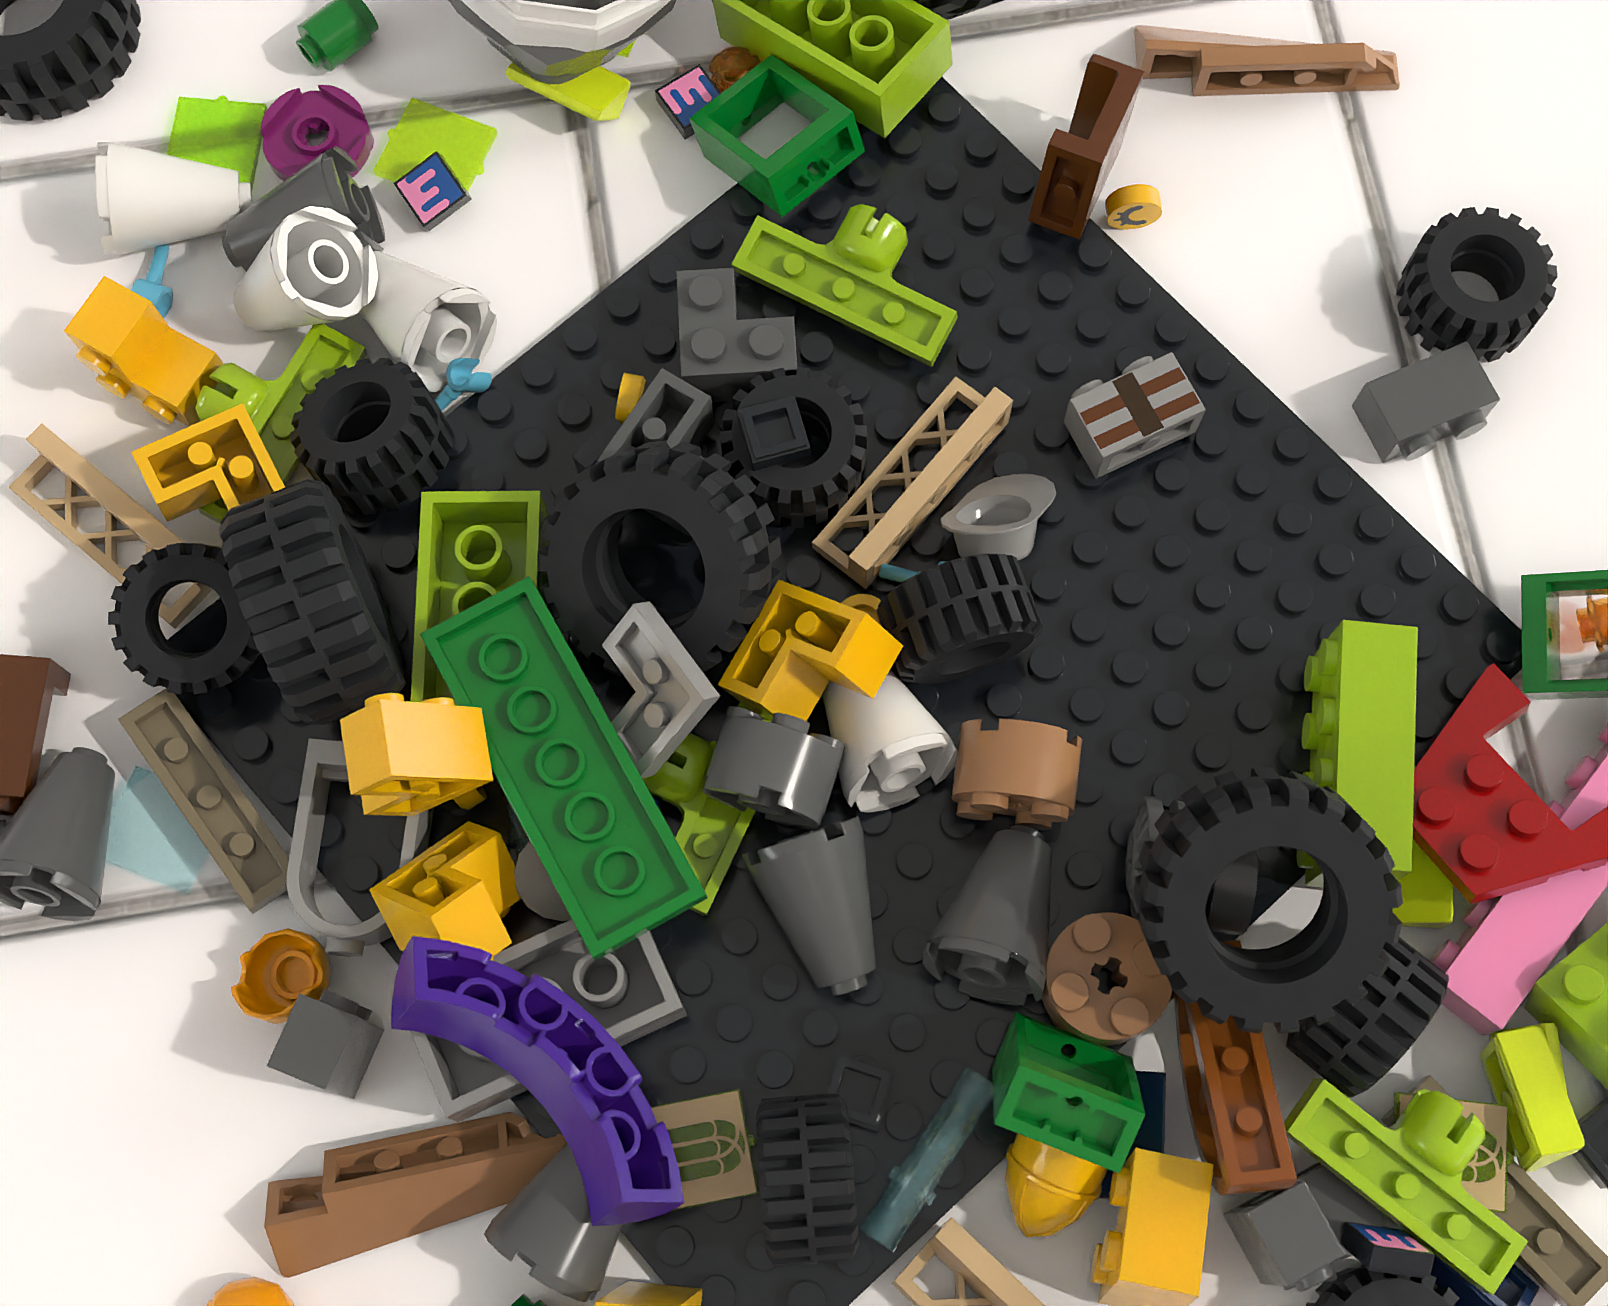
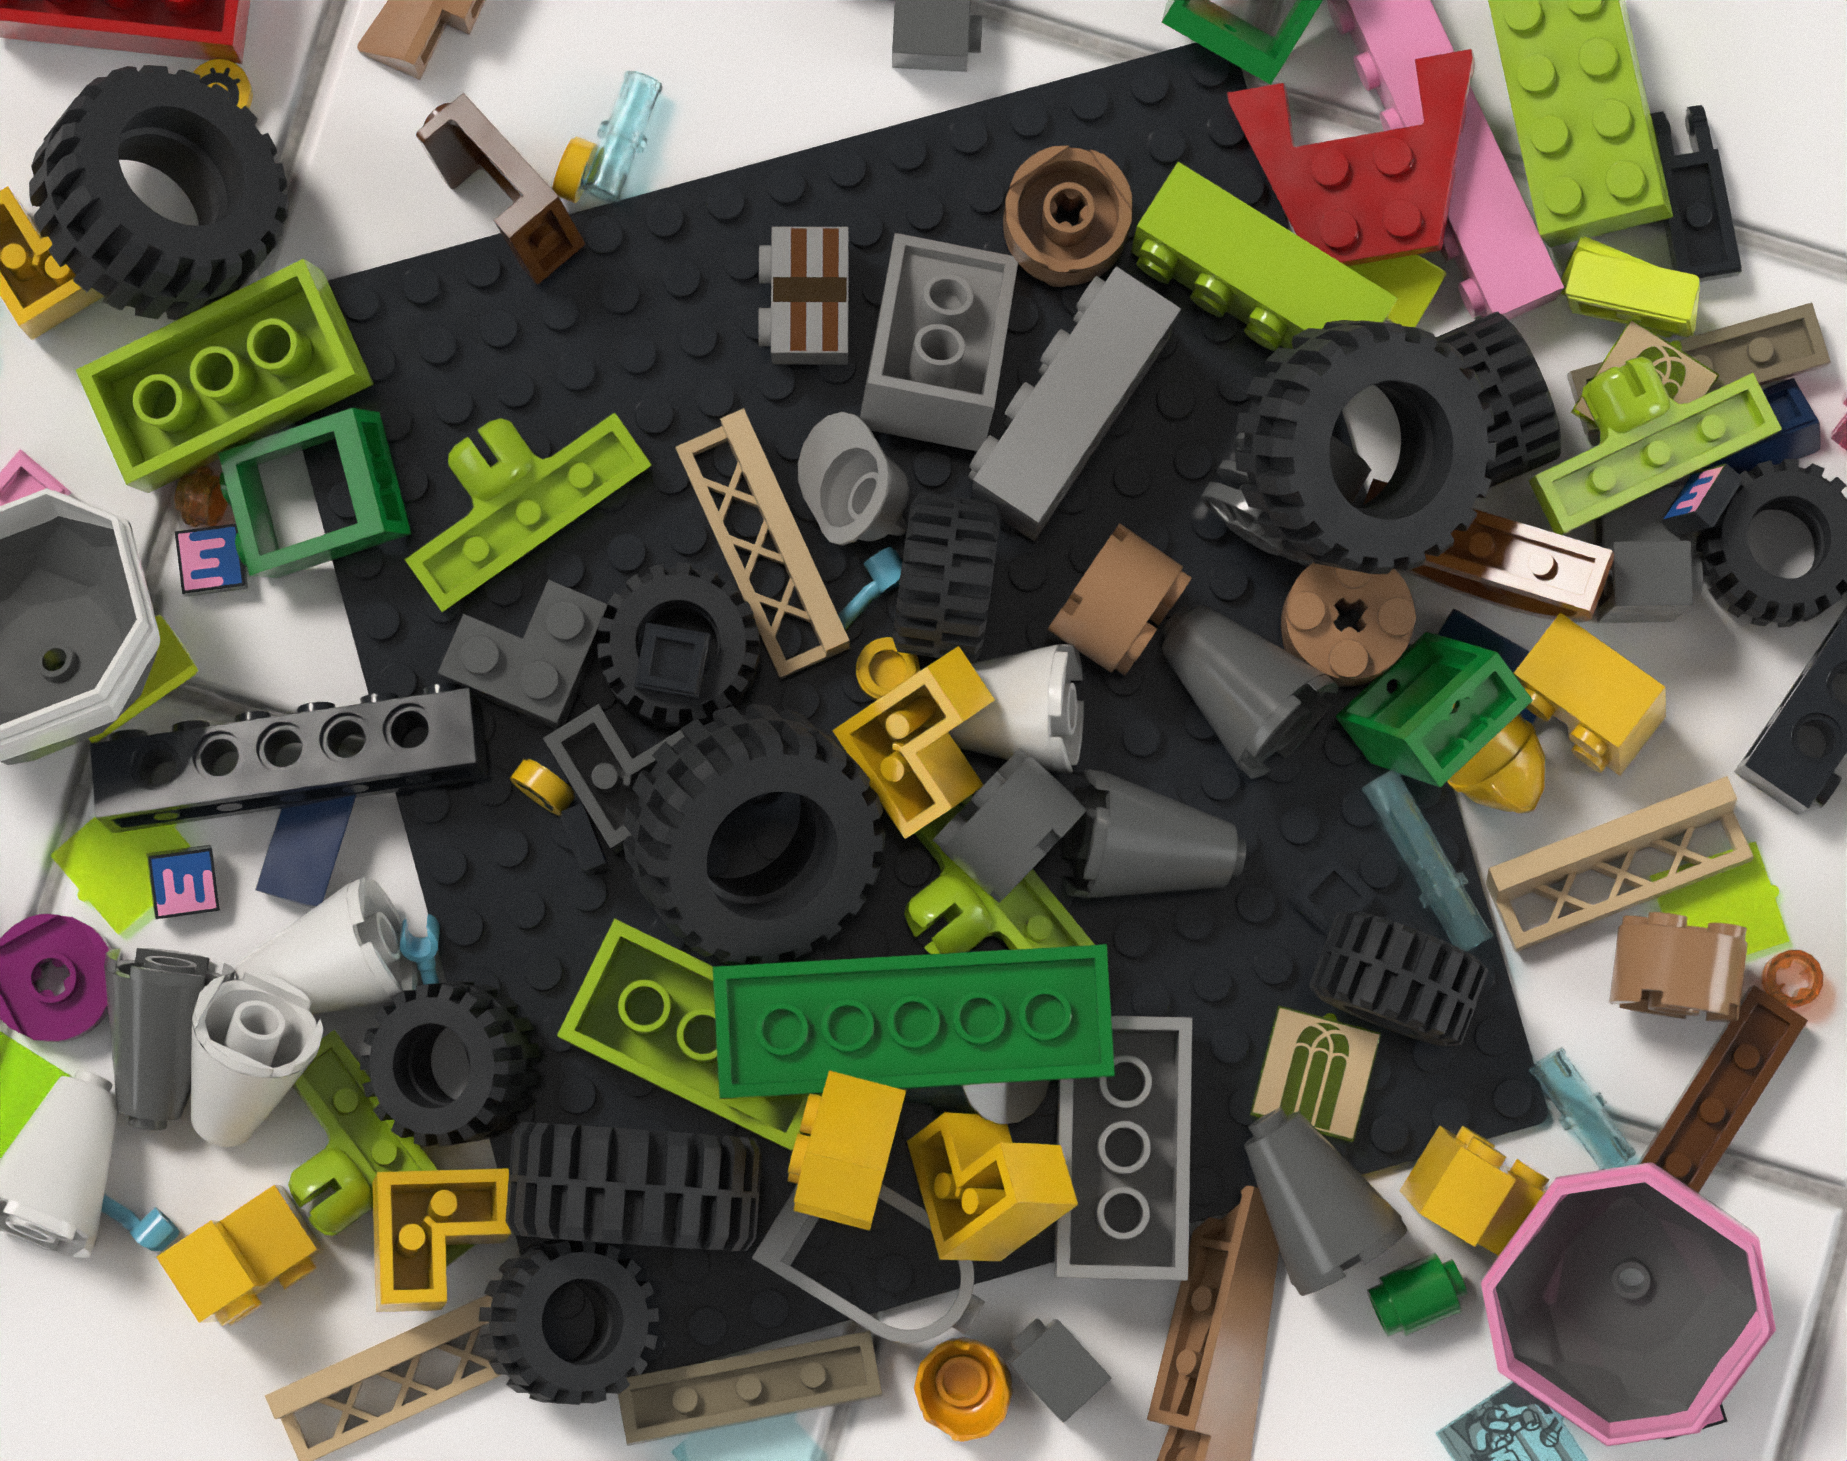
camera: 70 degrees left, 10 degrees up
(511, 262) = (305, 851): none -> dark blue slope
(559, 1058) = (1195, 1146): dark purple brick -> none
(562, 214) = (447, 756): none -> black brick
(667, 685) = (887, 884): light grey plate -> none
(1150, 531) = (939, 342): none -> light grey slope
(1165, 653) = (1075, 402): none -> light grey brick
(1179, 229) = (622, 136): none -> clear light blue pin
(1322, 545) = (1074, 180): none -> medium nougat brick

